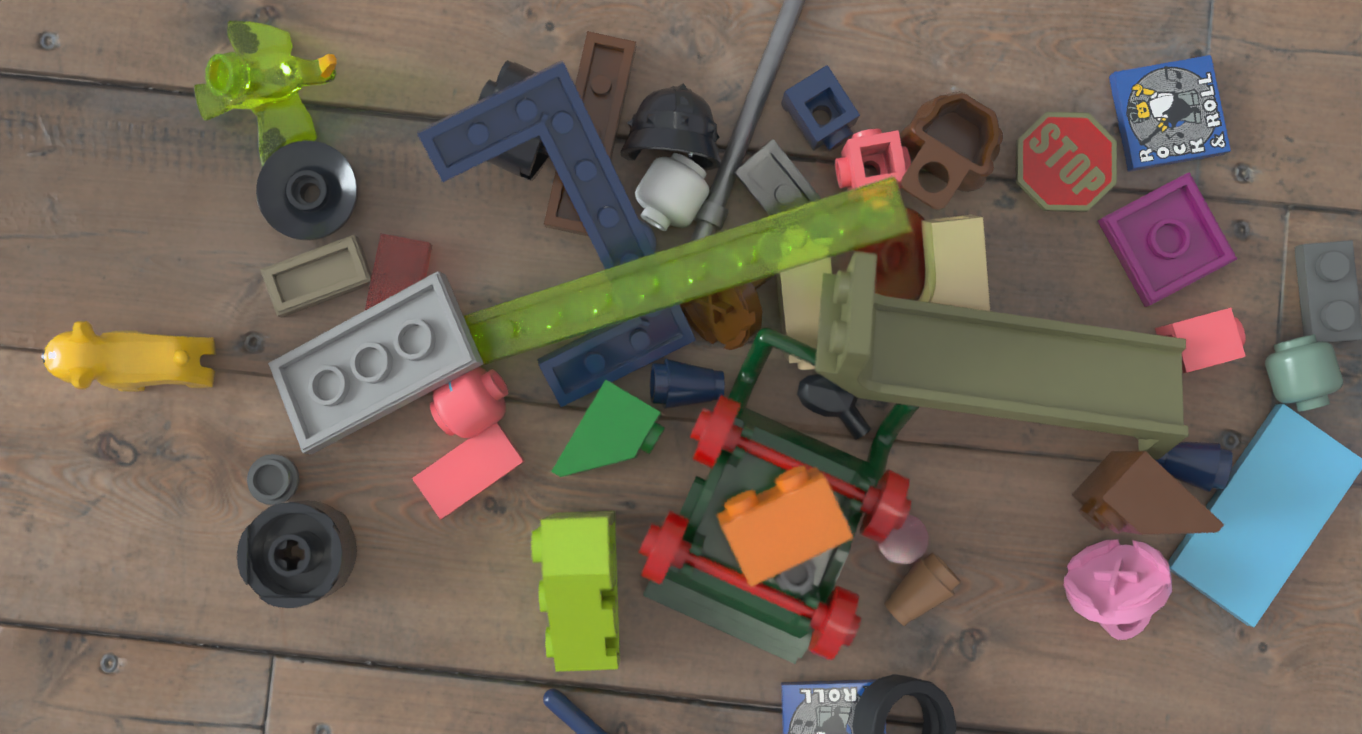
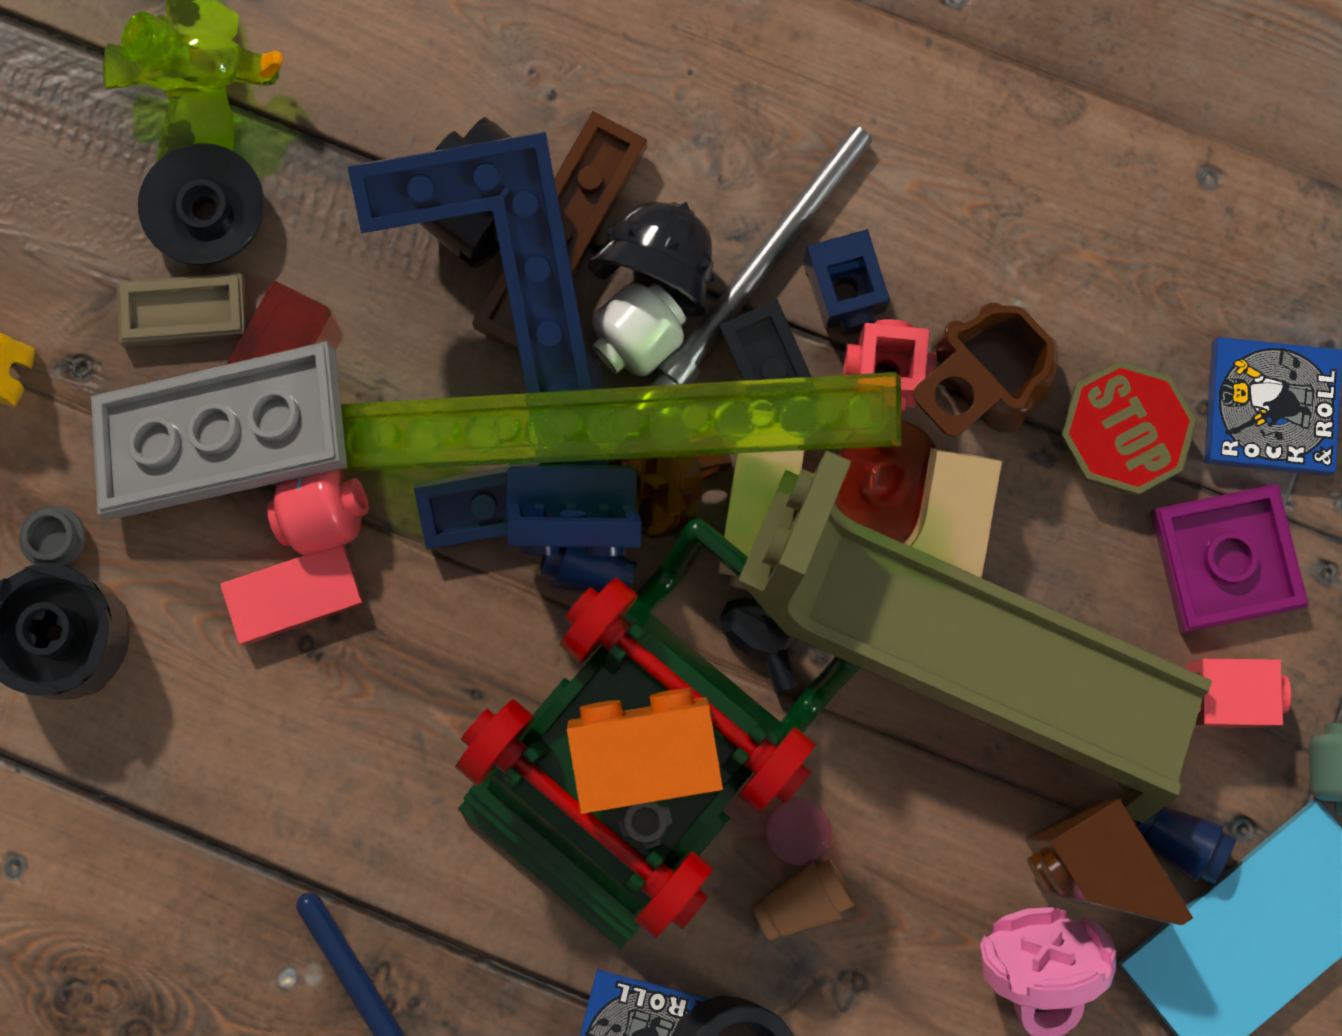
camera: 15 degrees right, 5 degrees down
(579, 589) = (381, 771): lime brick -> none
(610, 432) = (474, 594): green slope -> none
(665, 347) = (572, 508): none -> dark blue bracket

